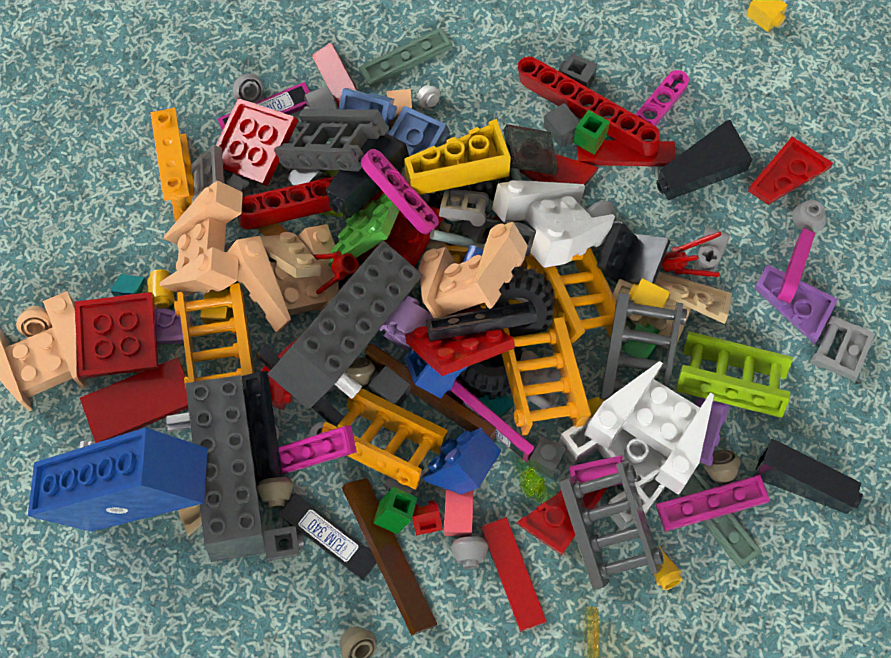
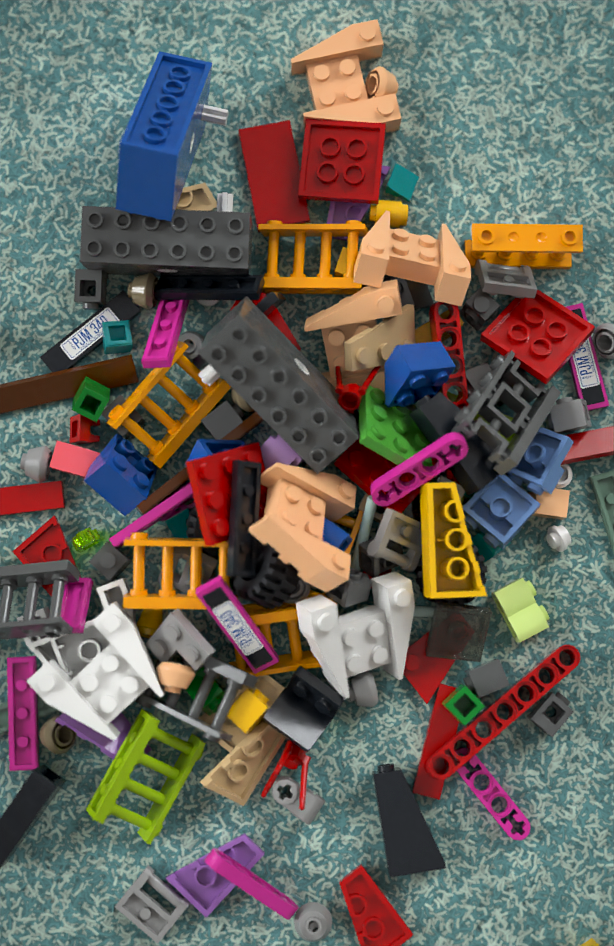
camera: 95 degrees right, 15 degrees up
(311, 217) = (415, 372): none -> blue slope
(326, 507) = (117, 337): none -> teal slope
(501, 105) = (520, 609): none -> yellowish green brick
(576, 315) = (237, 624): none -> tile
(601, 358) = (180, 636): none -> light grey plate
(638, 360) = (174, 676): none -> light nougat cone

